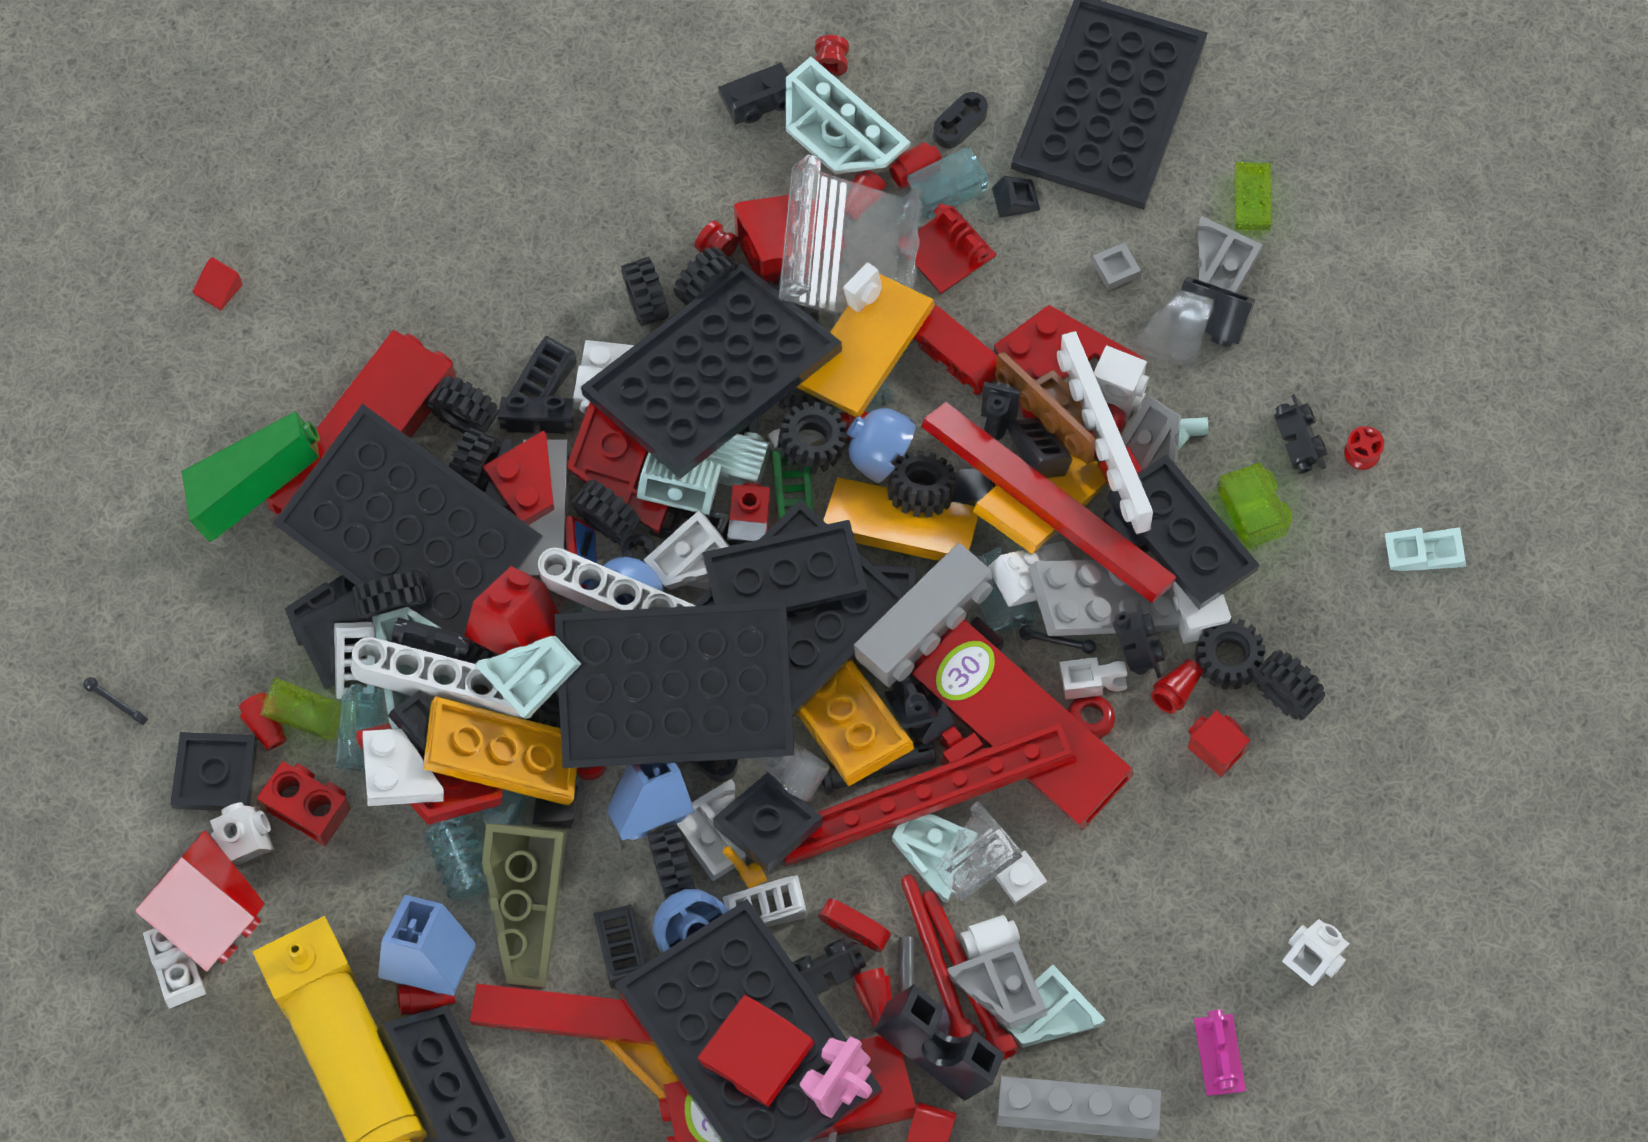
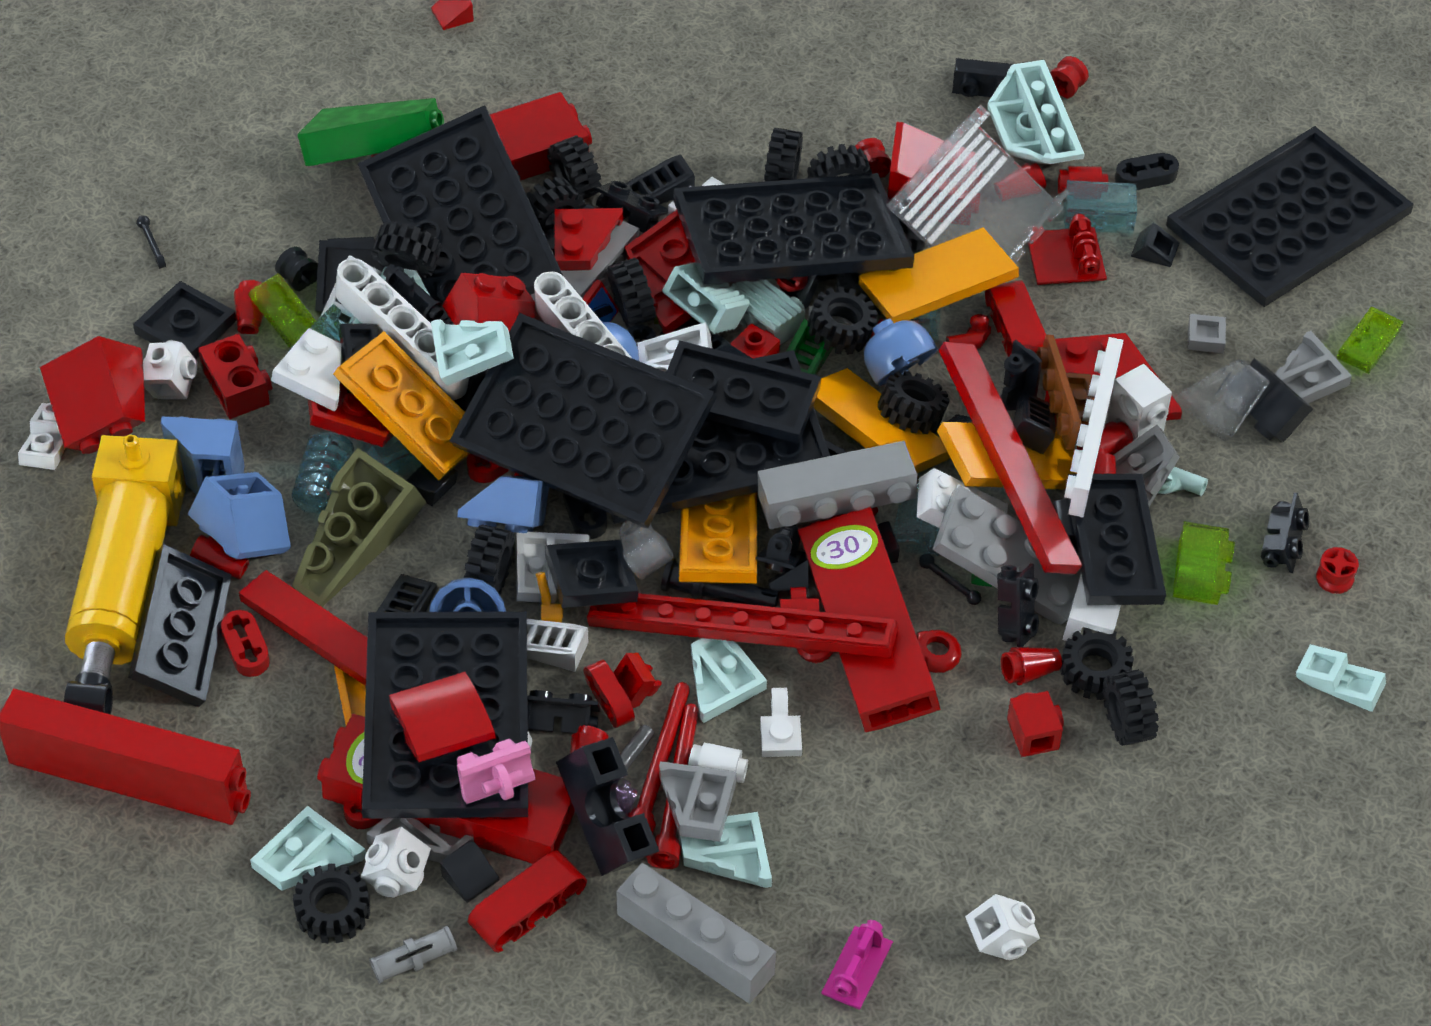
camera: 30 degrees right, 15 degrees down
(278, 655) = (297, 268): none -> black wheel
(348, 903) = (205, 447): none -> medium blue slope
(502, 1072) = (237, 645): none -> red beam
(863, 287) = (962, 228): white plate -> none
(868, 898) = (636, 678): none -> red tile
(923, 381) = (976, 334): none -> red arm
(976, 854) = (749, 688): clear wing -> none
(1087, 678) = (956, 615): white plate -> none

